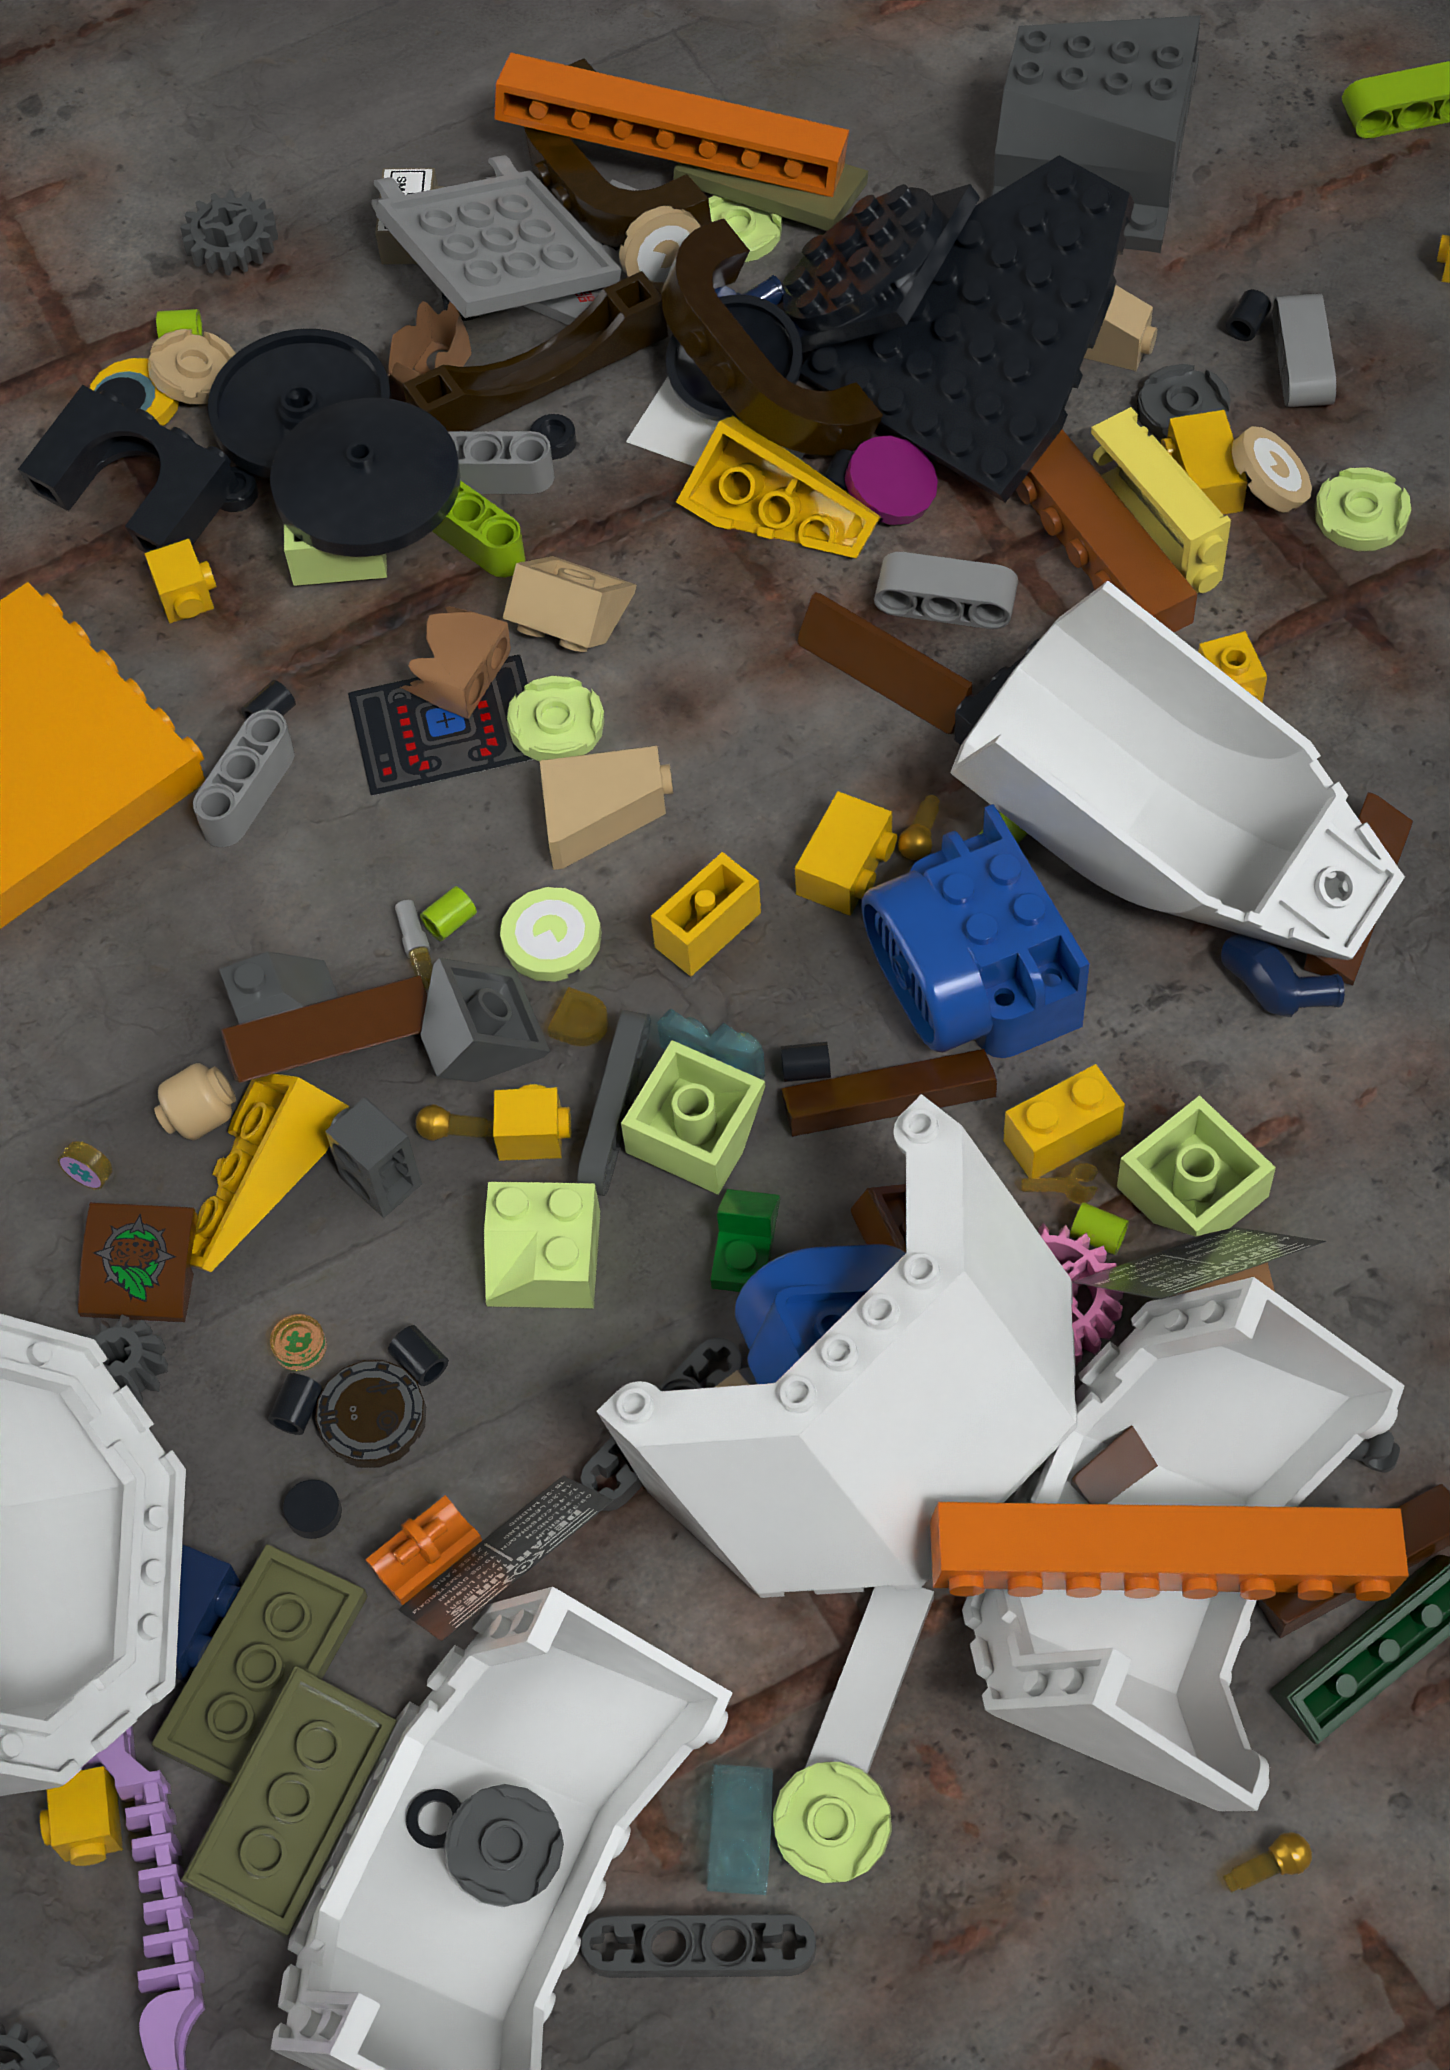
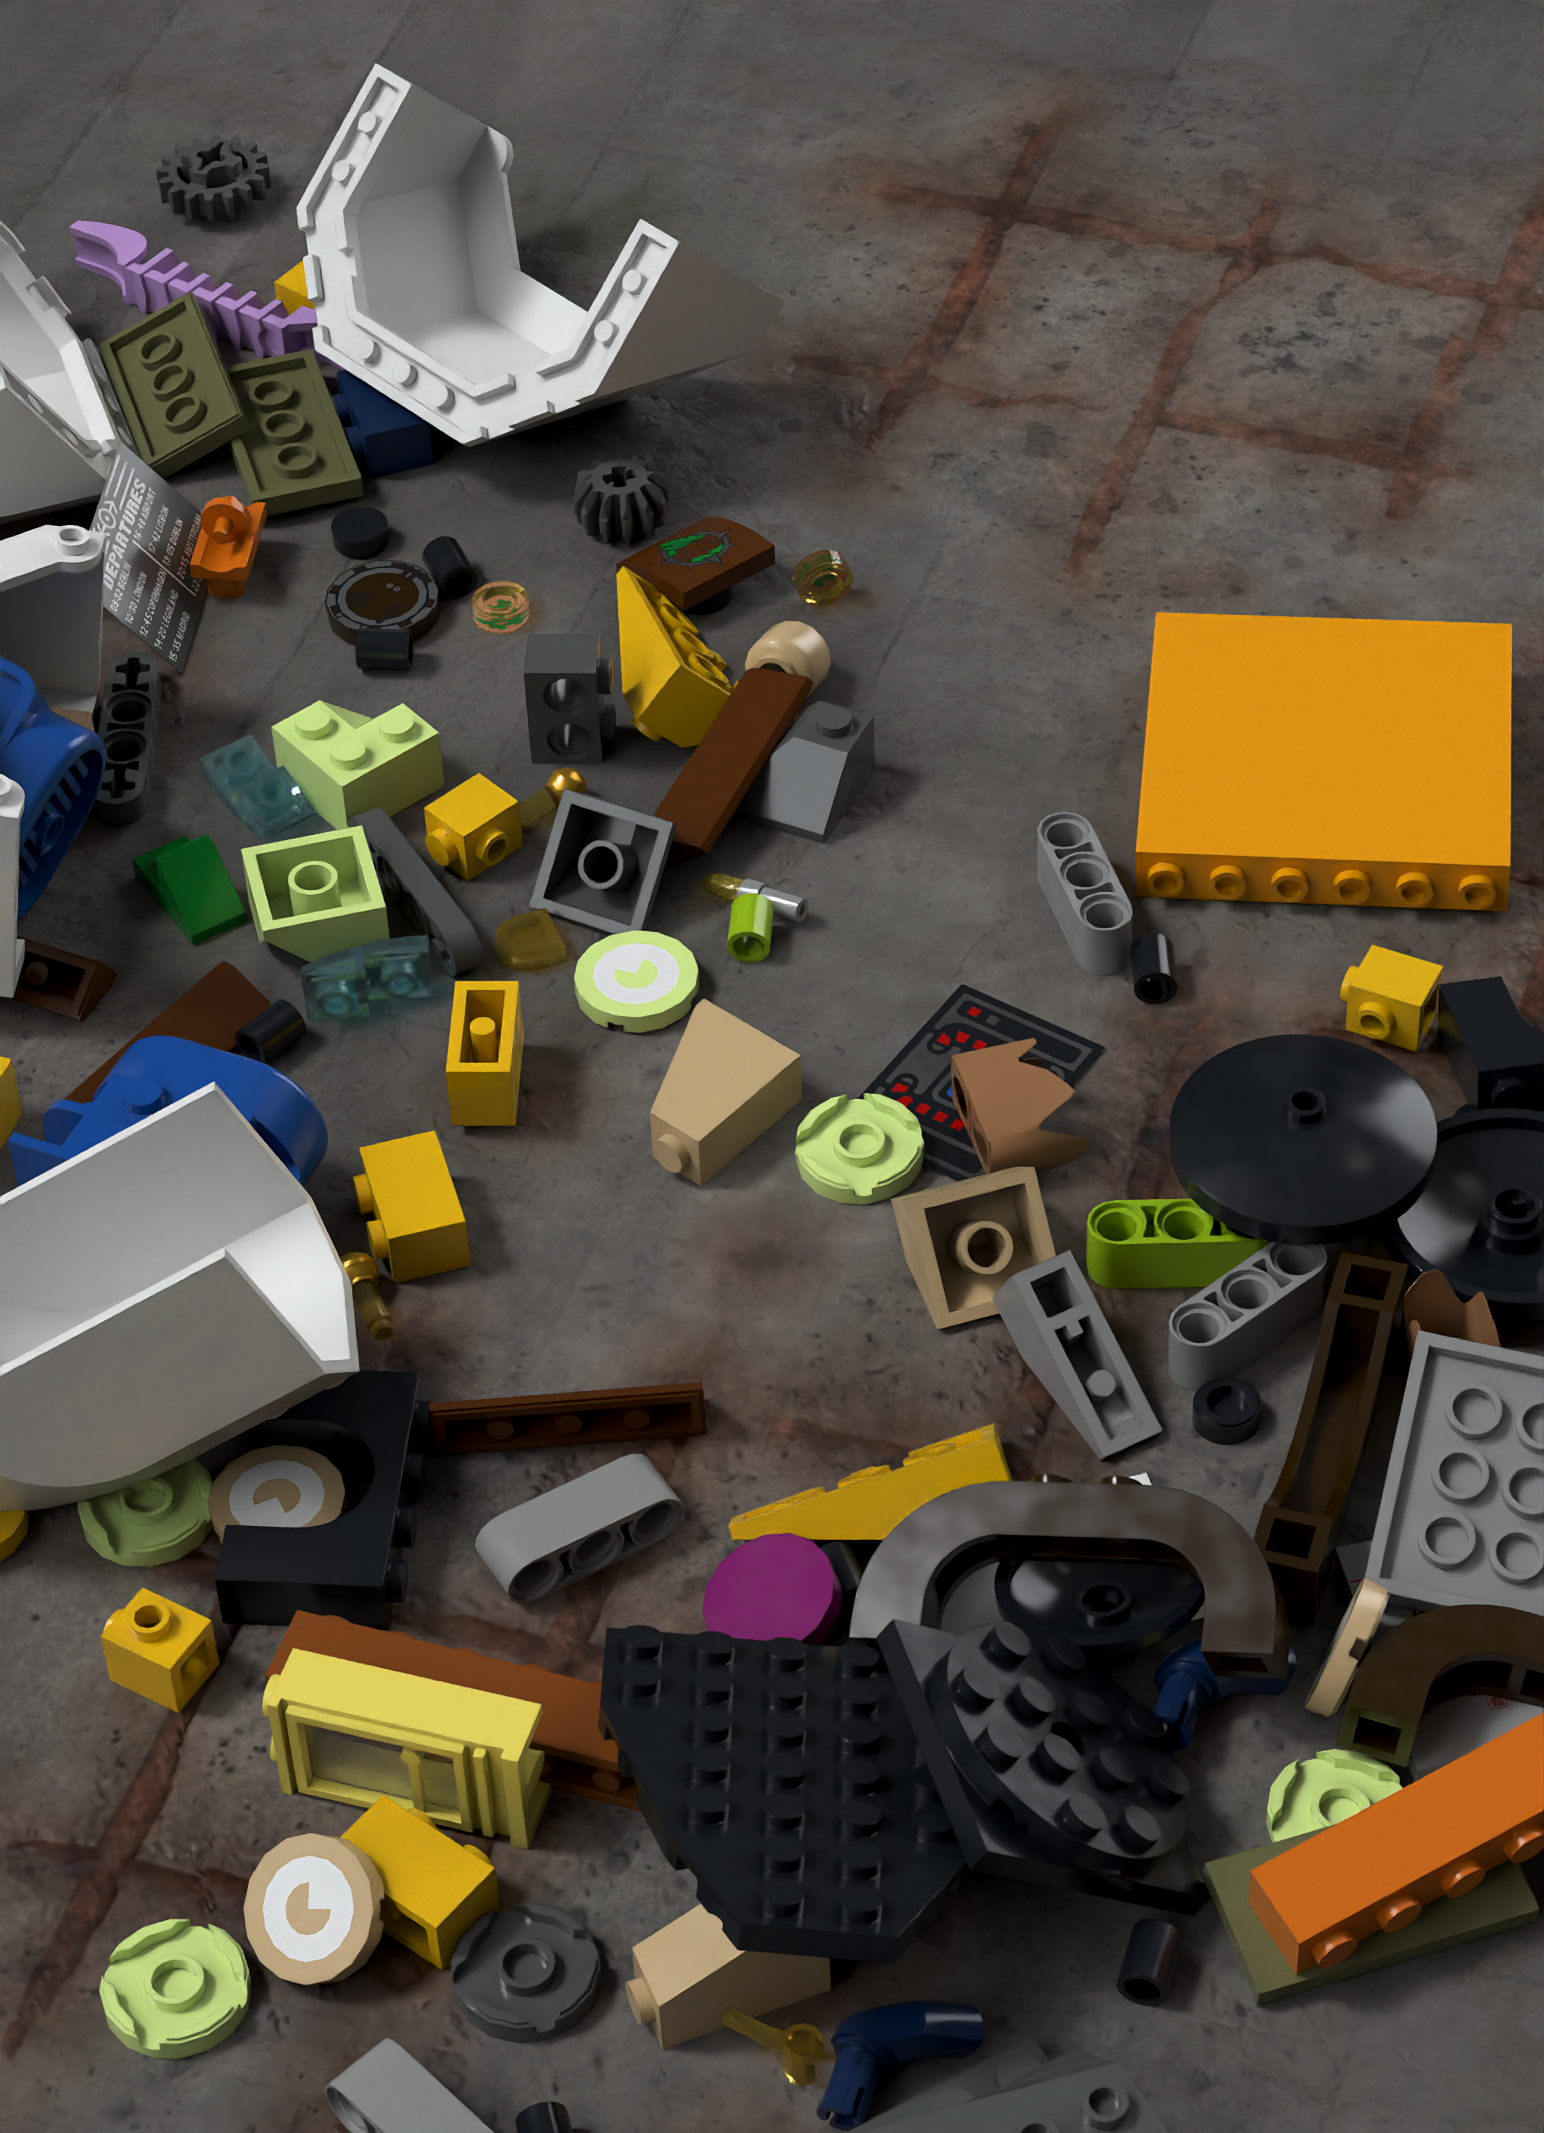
camera: 135 degrees right, 15 degrees down
(595, 504) = (1076, 1354): none -> light grey slope
(623, 1294) = (252, 788): none -> clear light blue slope

